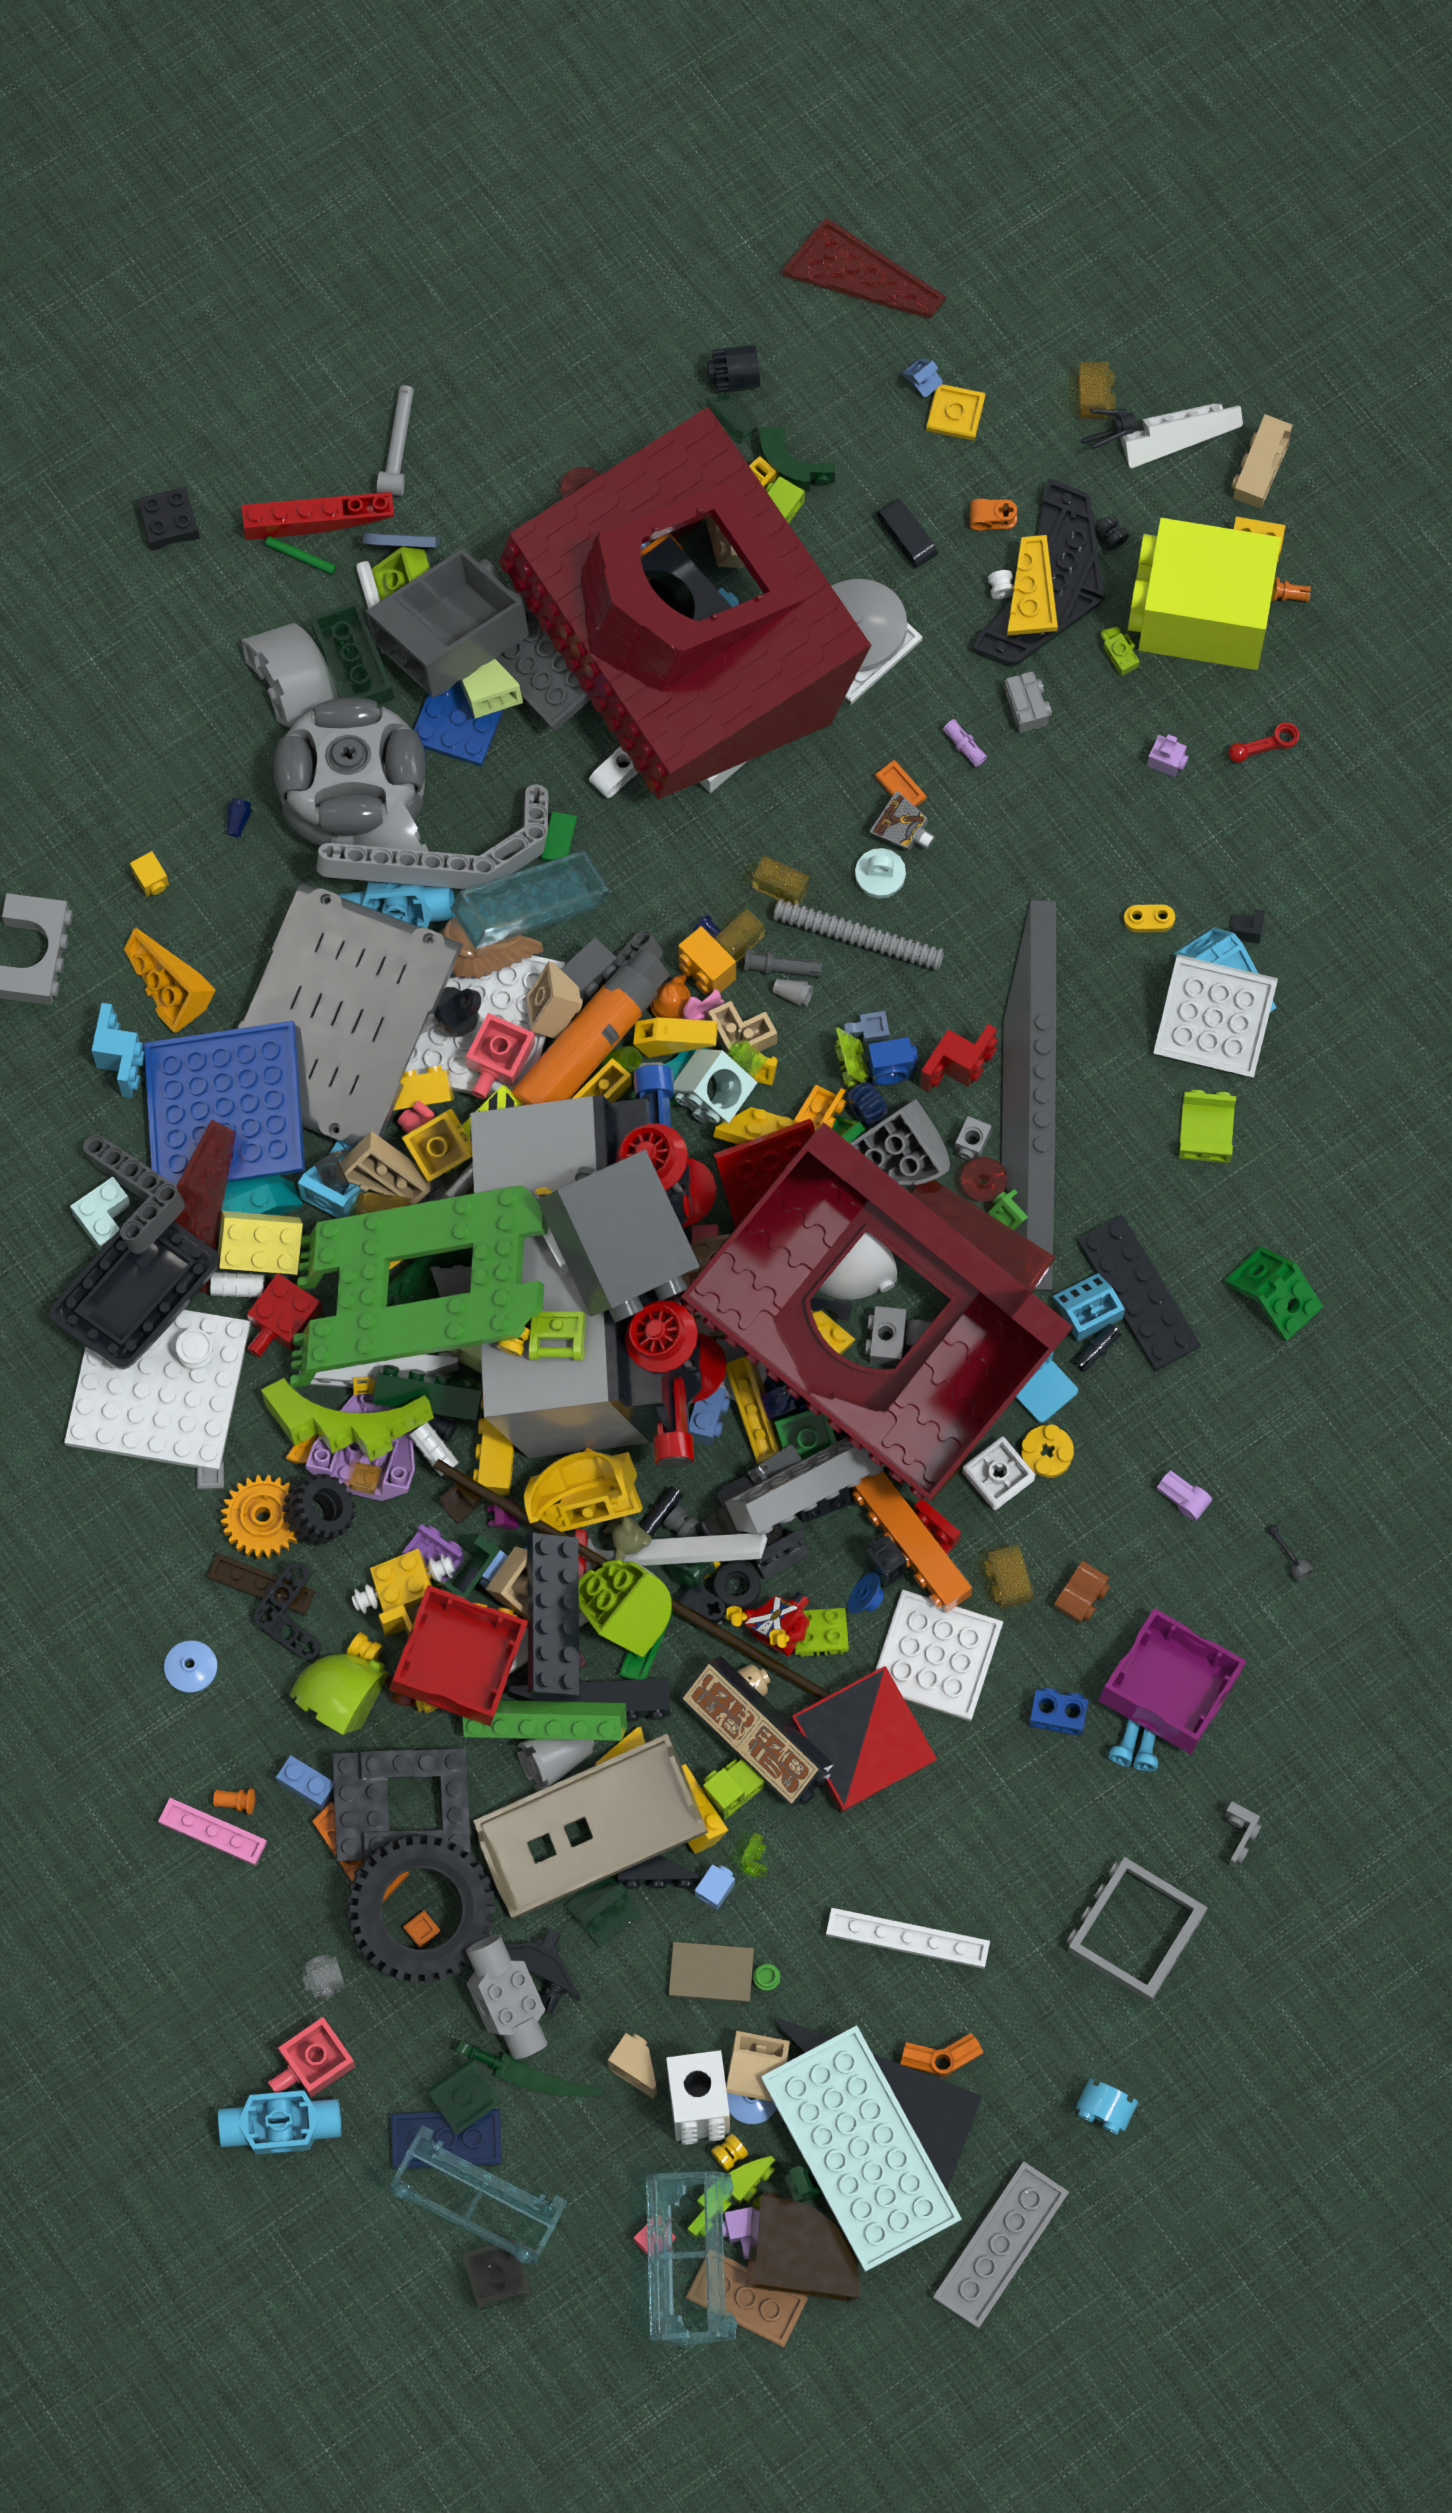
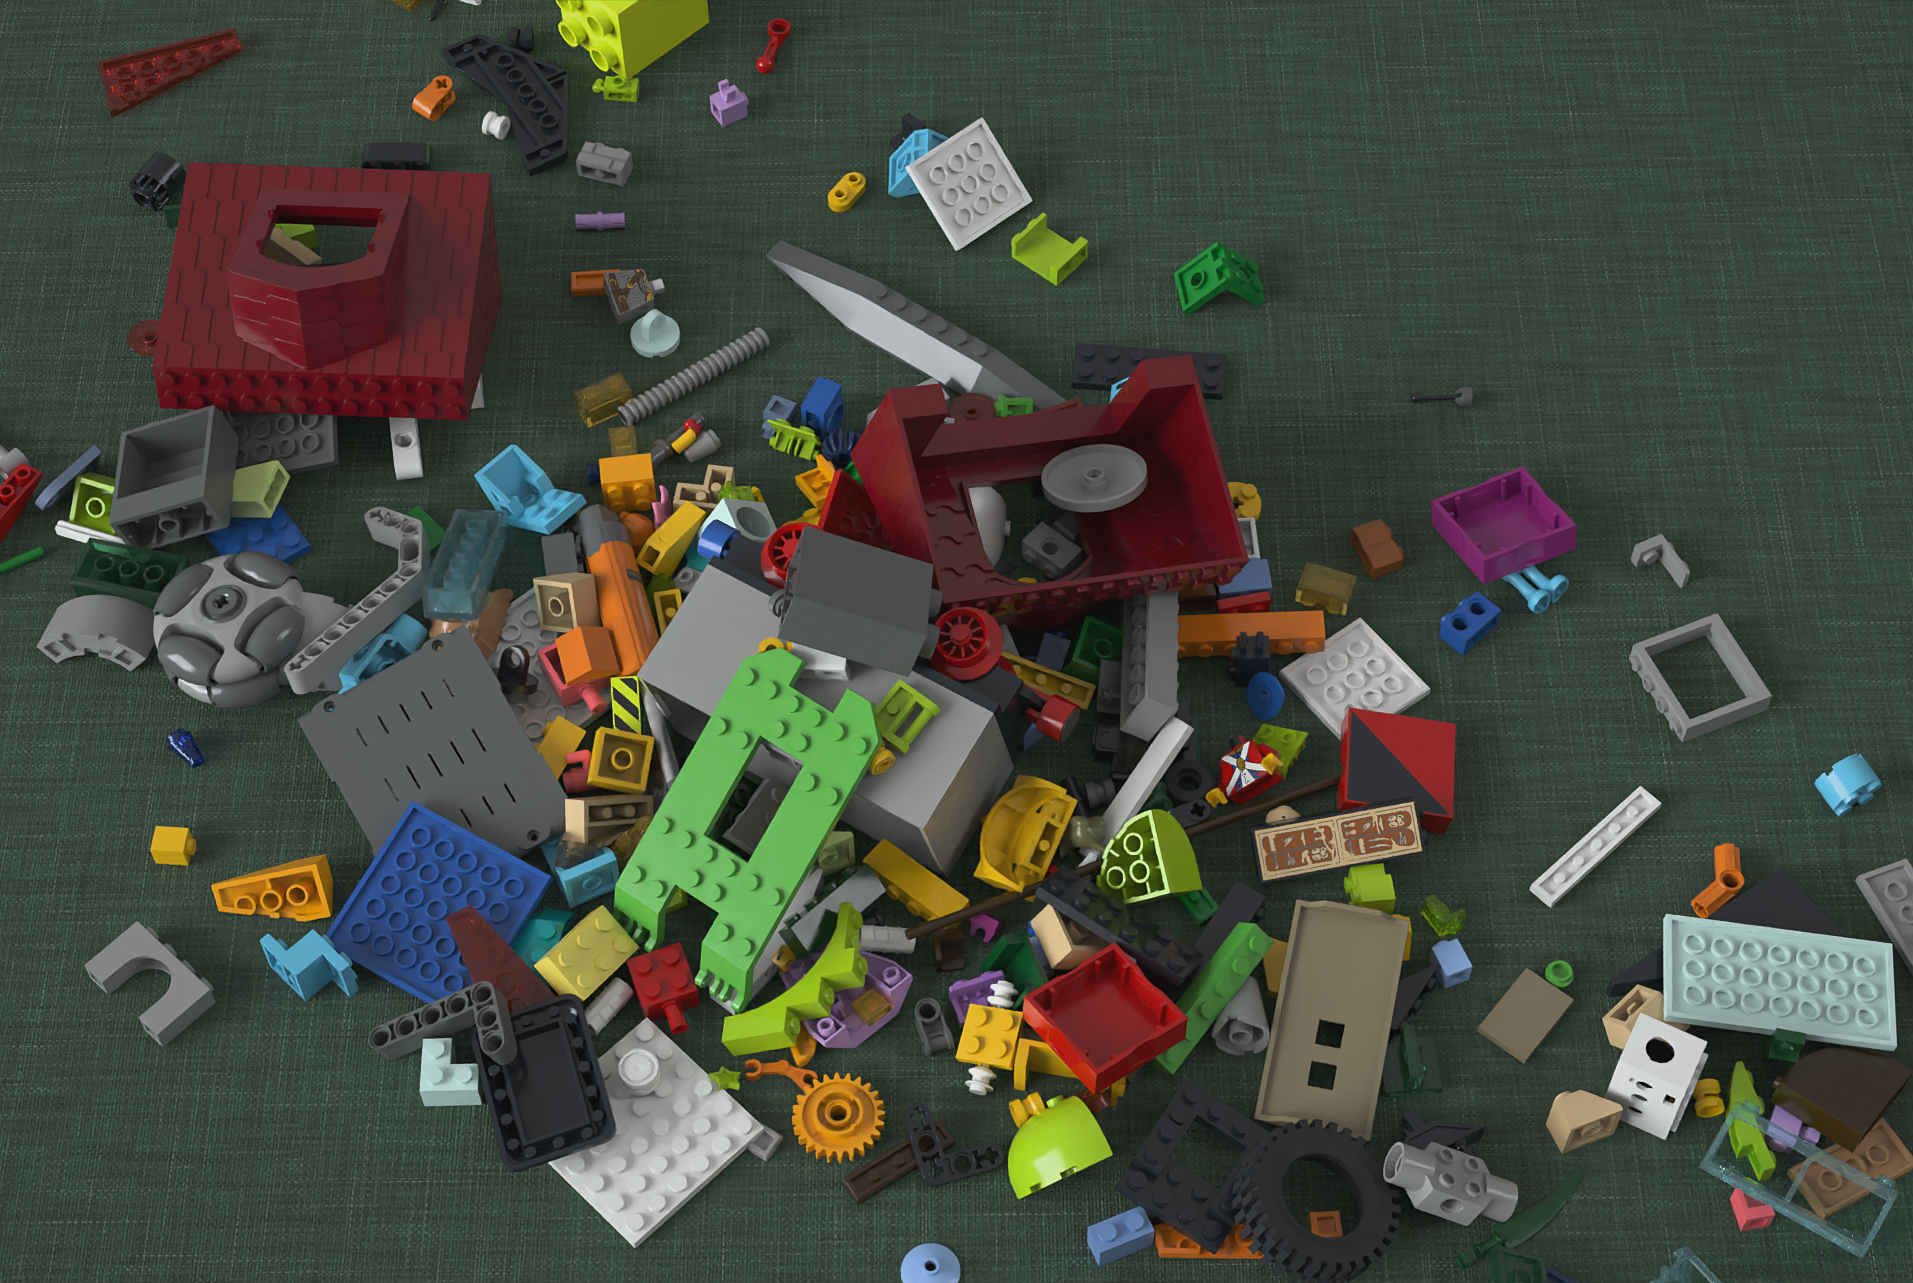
camera: 55 degrees left, 15 degrees down
(240, 1413) = (726, 1079): none -> lime piece
(279, 1448) = (783, 1068): none -> orange piece
(334, 1500) = (871, 1061): black tyre -> none
(384, 1536) = (933, 1031): none -> dark grey piece
(509, 1052) = (586, 654): none -> orange slope
(638, 894) = (526, 493): none -> medium azure bracket
(786, 975) = (685, 440): none -> yellow arm
(923, 376) = (283, 75): medium blue slope -> none
(941, 1326) = (1094, 478): none -> light grey dish
(955, 412) = (330, 78): yellow tile -> none
(959, 1059) = (859, 365): red bracket -> none
(966, 1505) = (1252, 579): none -> medium blue brick
(1033, 592) = (525, 106): yellow wing -> none
(1190, 1500) = (1350, 433): lavender piece -> none

